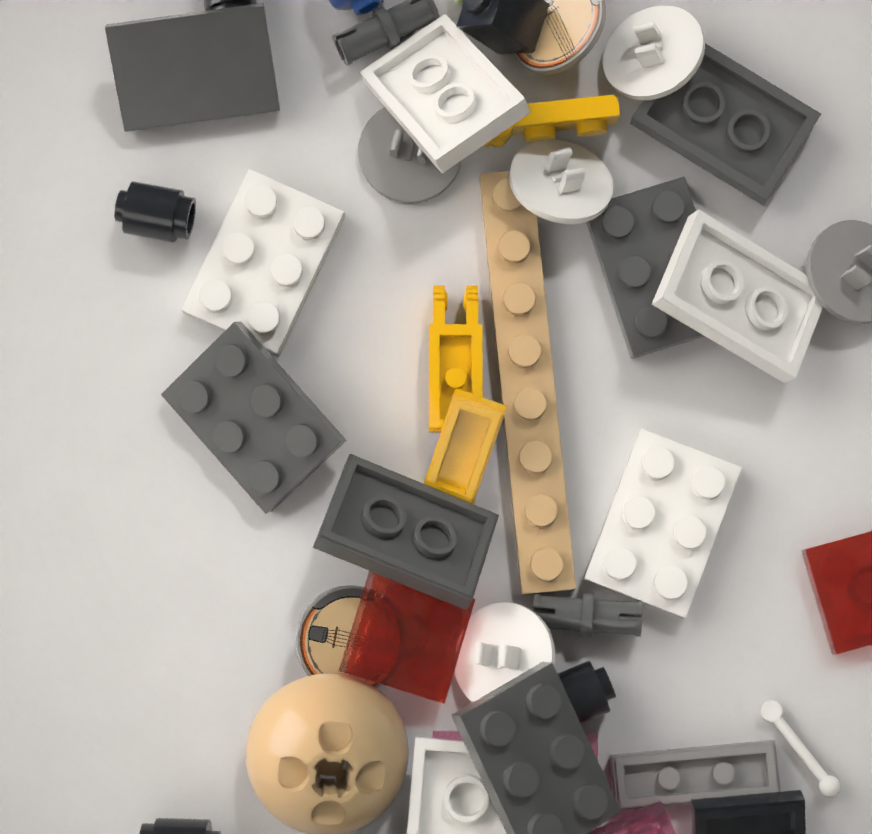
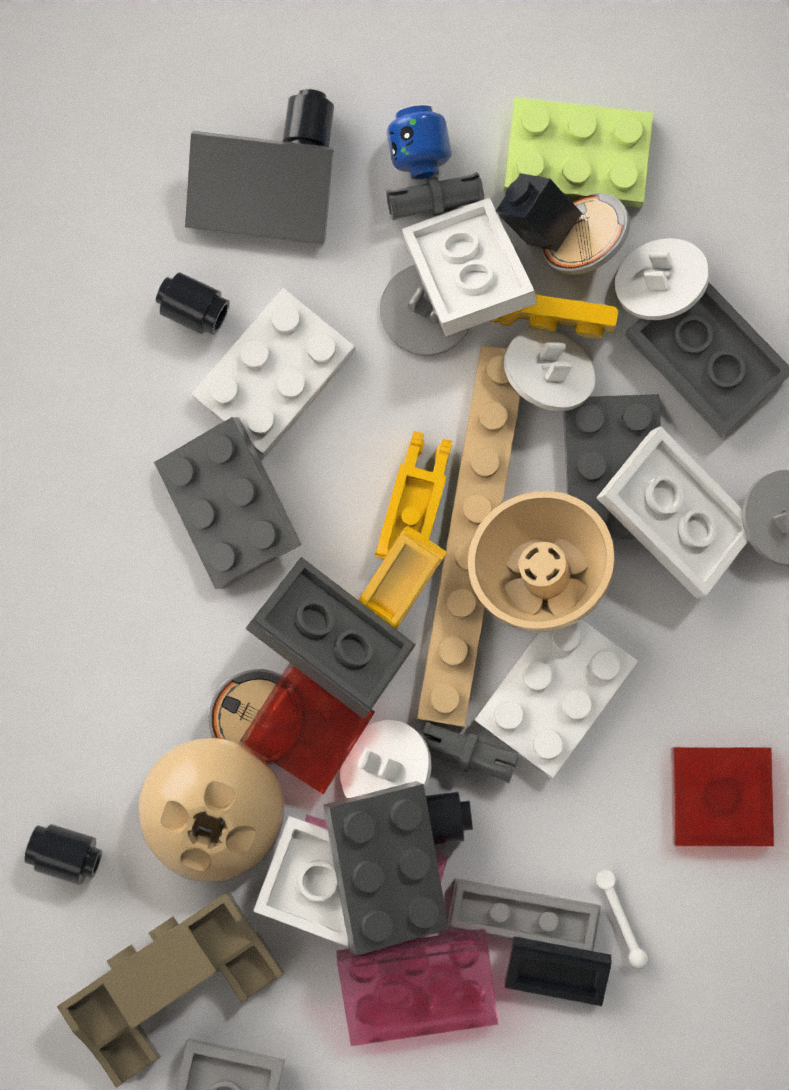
camera: 20 degrees right, 0 degrees up
(600, 365) = (539, 537): none -> tan piece

